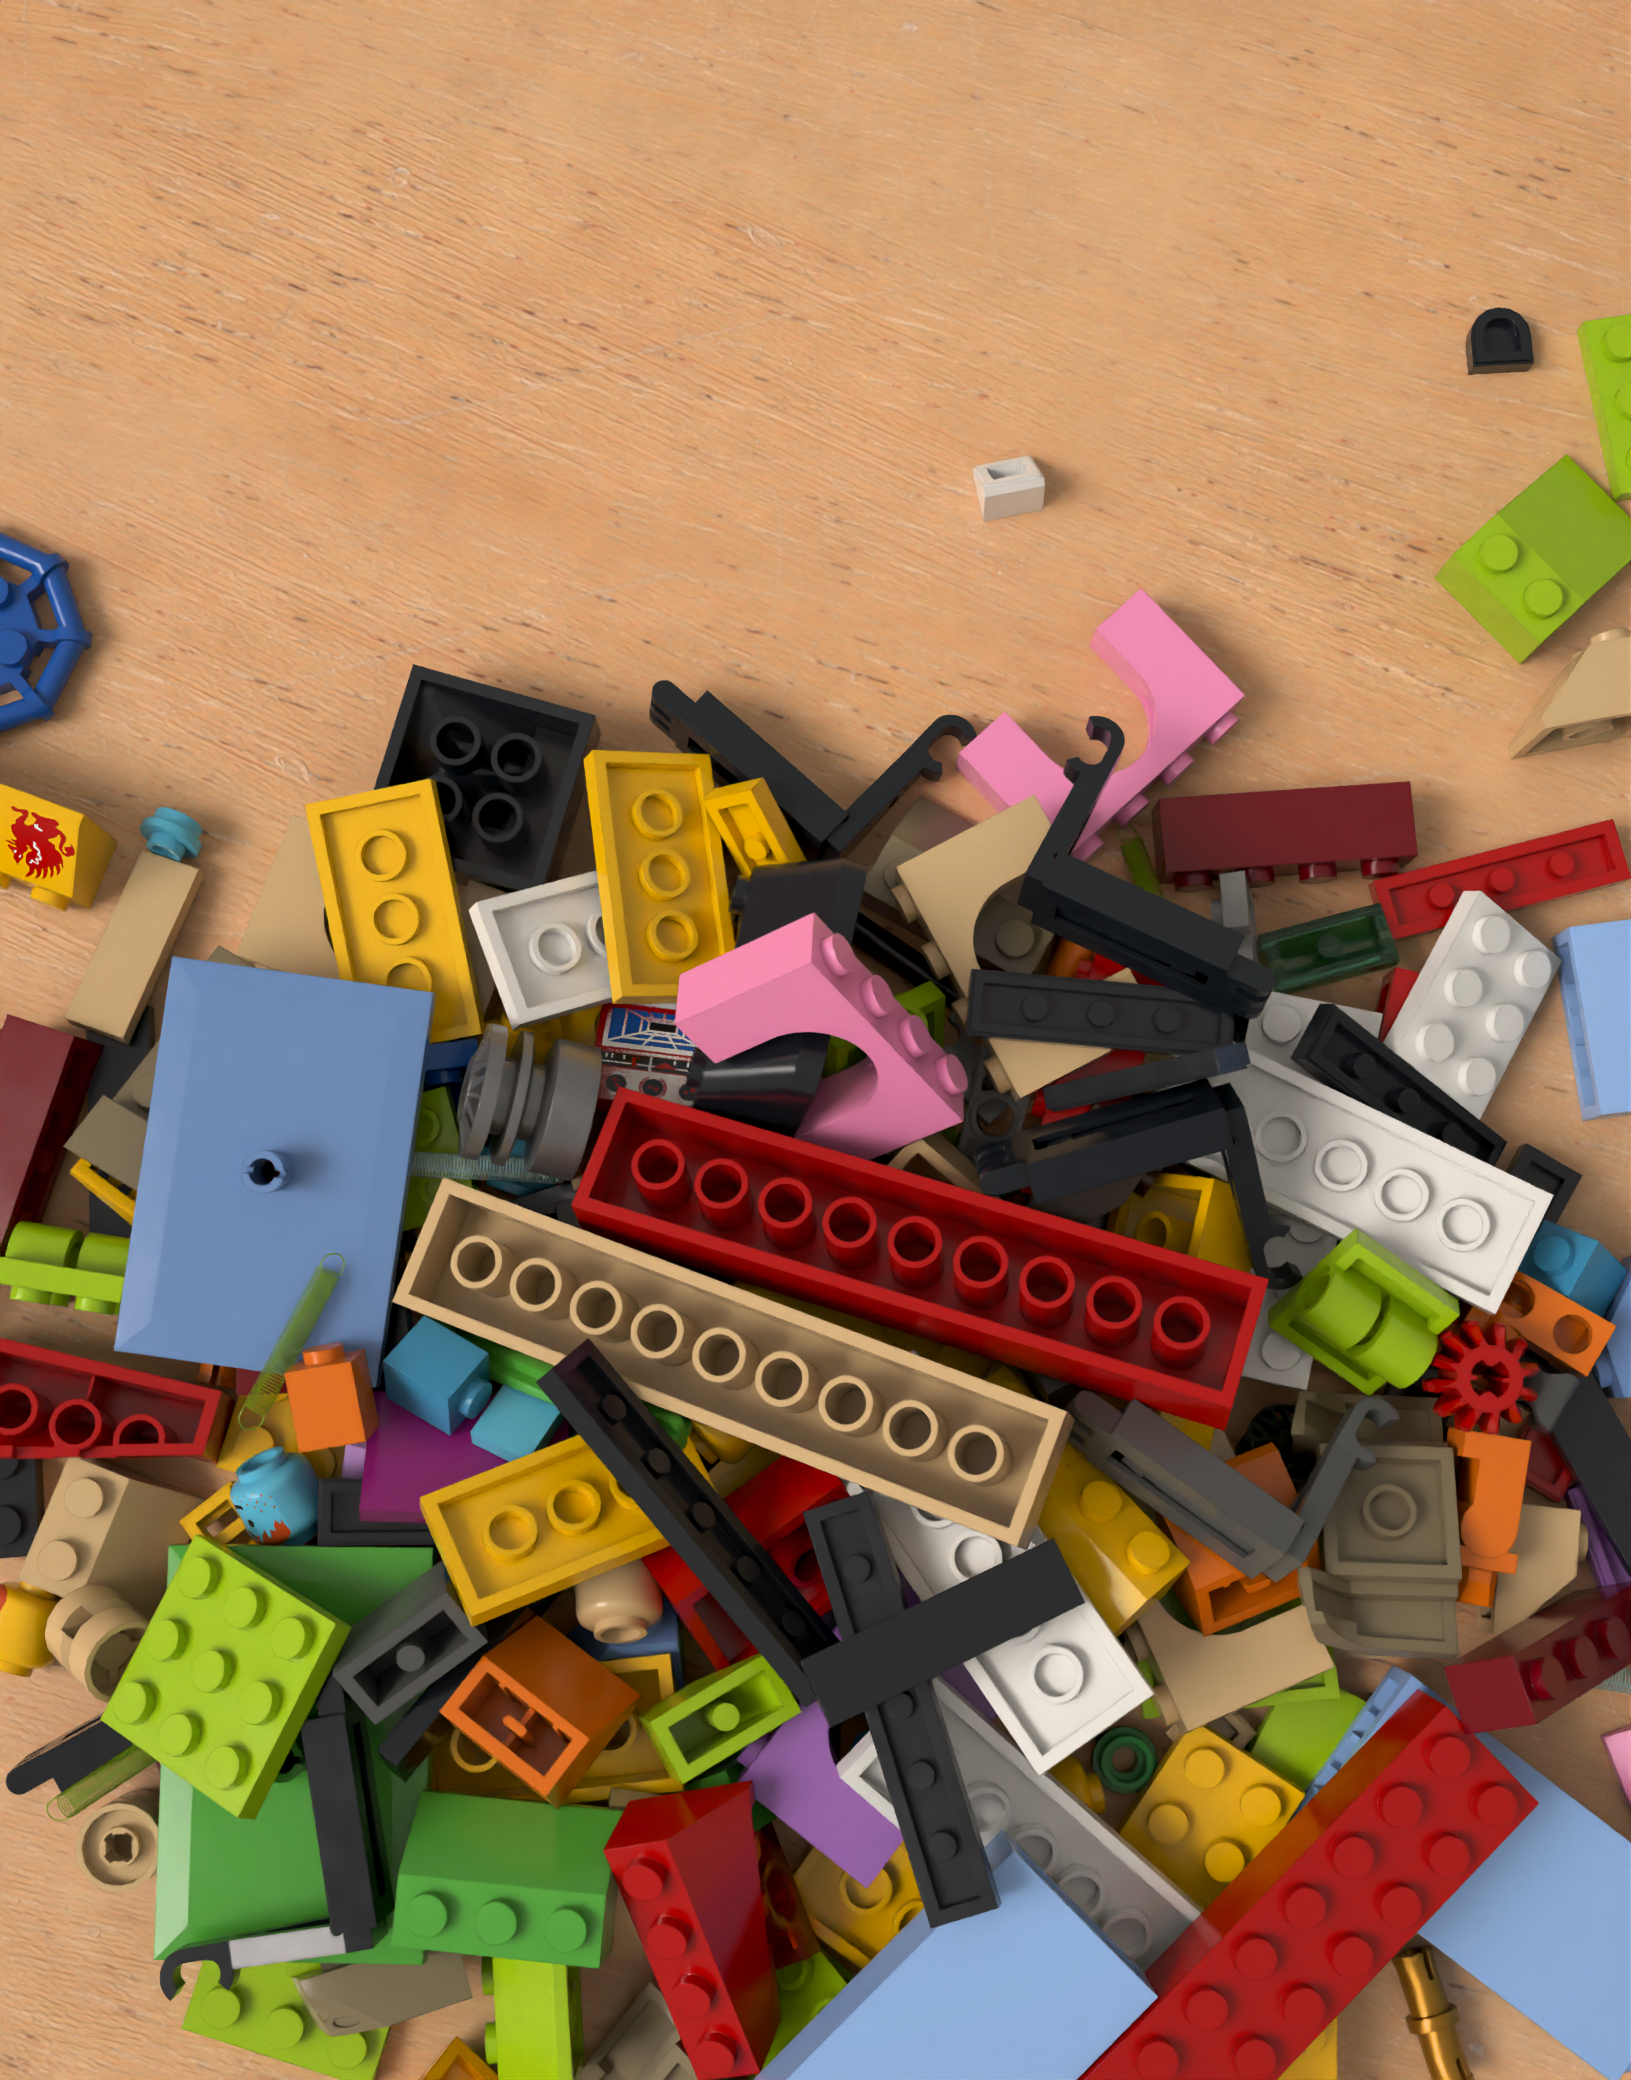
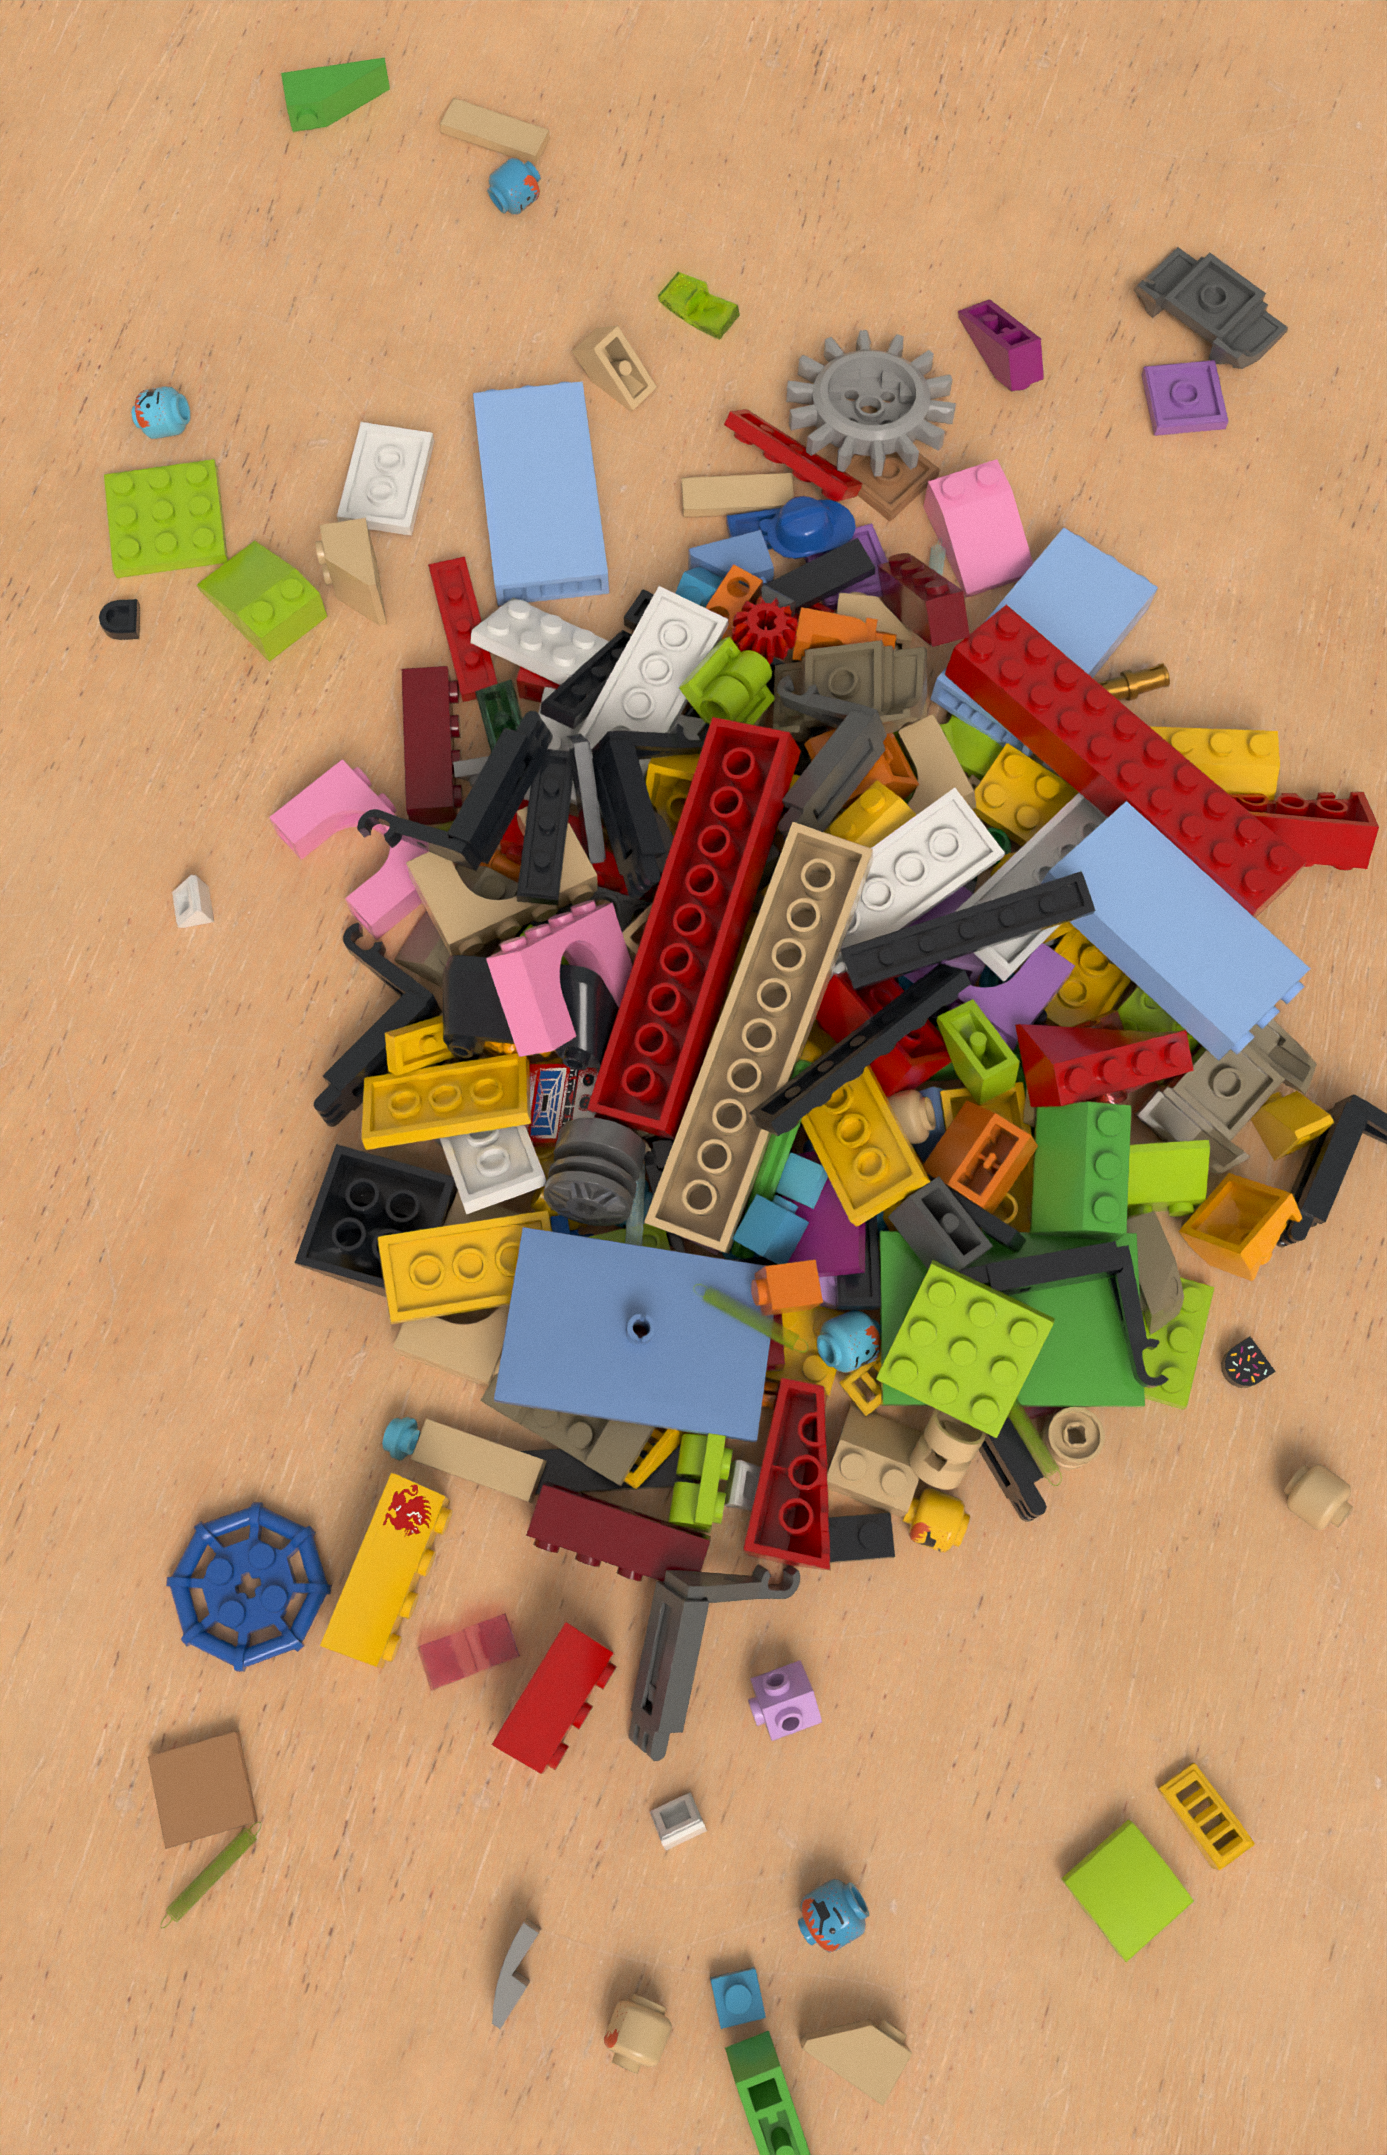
camera: 90 degrees left, 10 degrees down
(85, 1334) = (742, 1485): none -> white slope
(941, 1632) = (924, 903): black tile -> none

